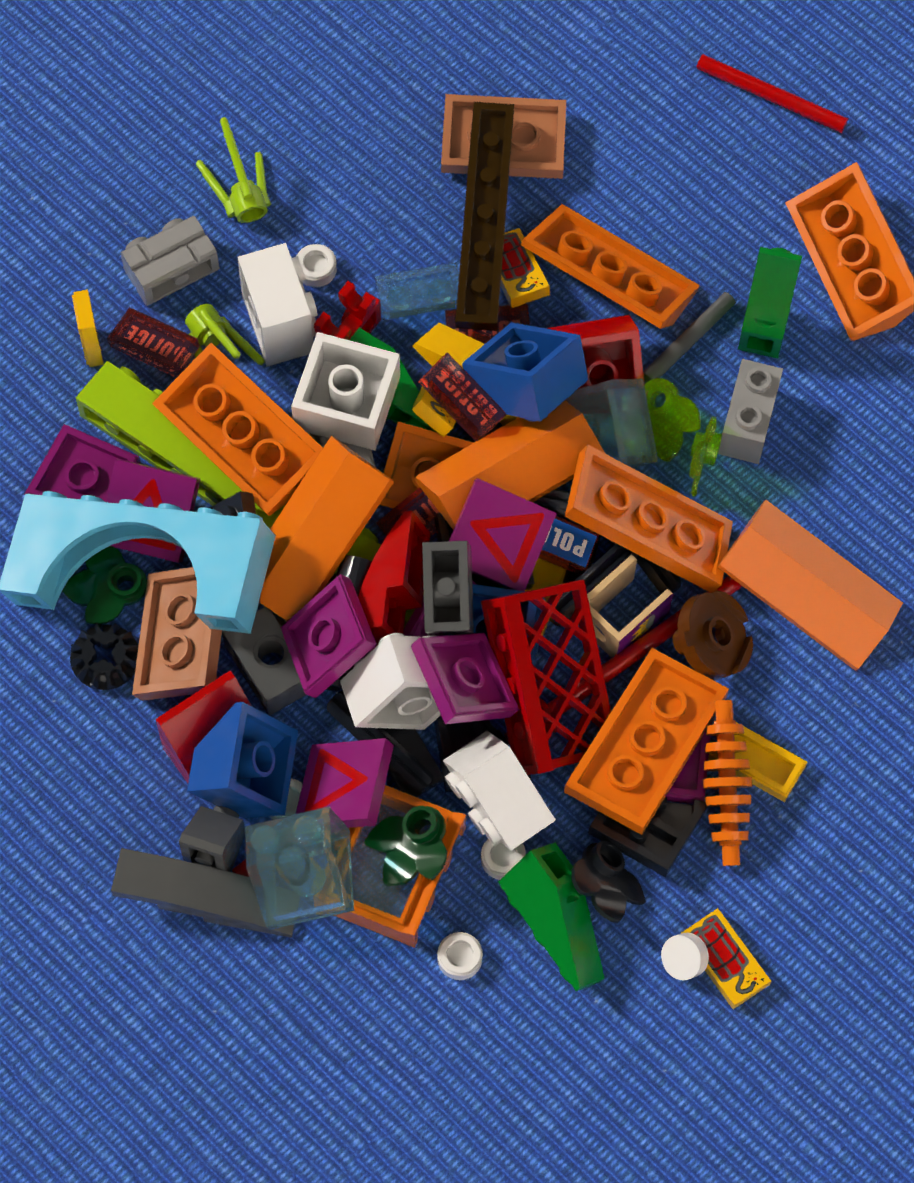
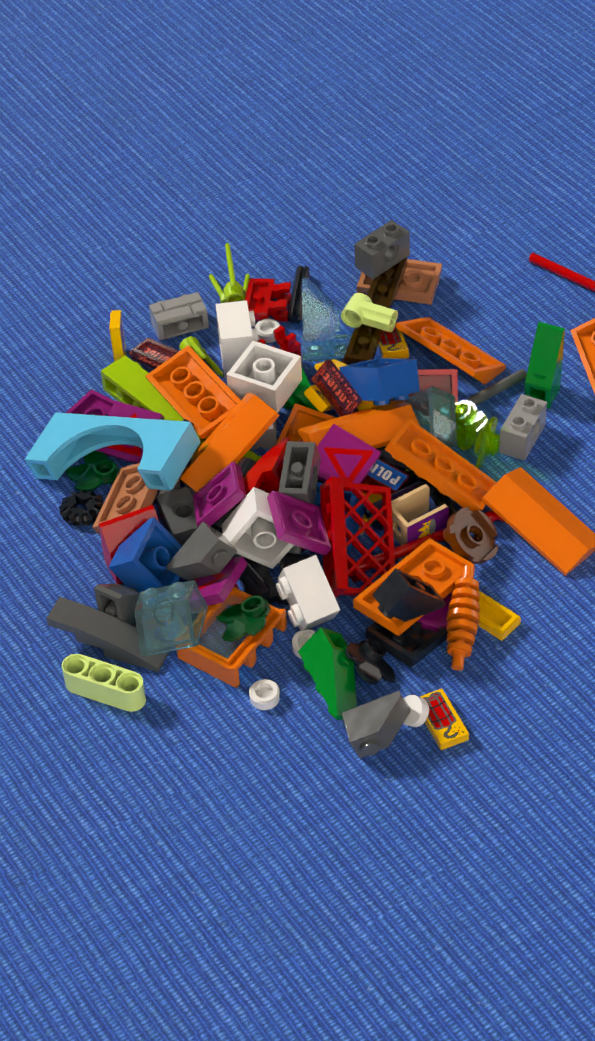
camera: 15 degrees right, 20 degrees down
(204, 964) = (104, 682): none -> yellowish green beam
(291, 207) = (260, 299): none -> red plate
(328, 743) = (202, 554): none -> dark grey slope
(349, 185) = (295, 307): none -> black axle
(397, 240) = (319, 313): none -> clear light blue slope
(470, 235) = (362, 311): none -> yellowish green piece
(477, 105) = (382, 249): none -> dark grey brick
(636, 995) = (375, 723): none -> dark grey slope
(649, 780) = (406, 597): none -> black slope

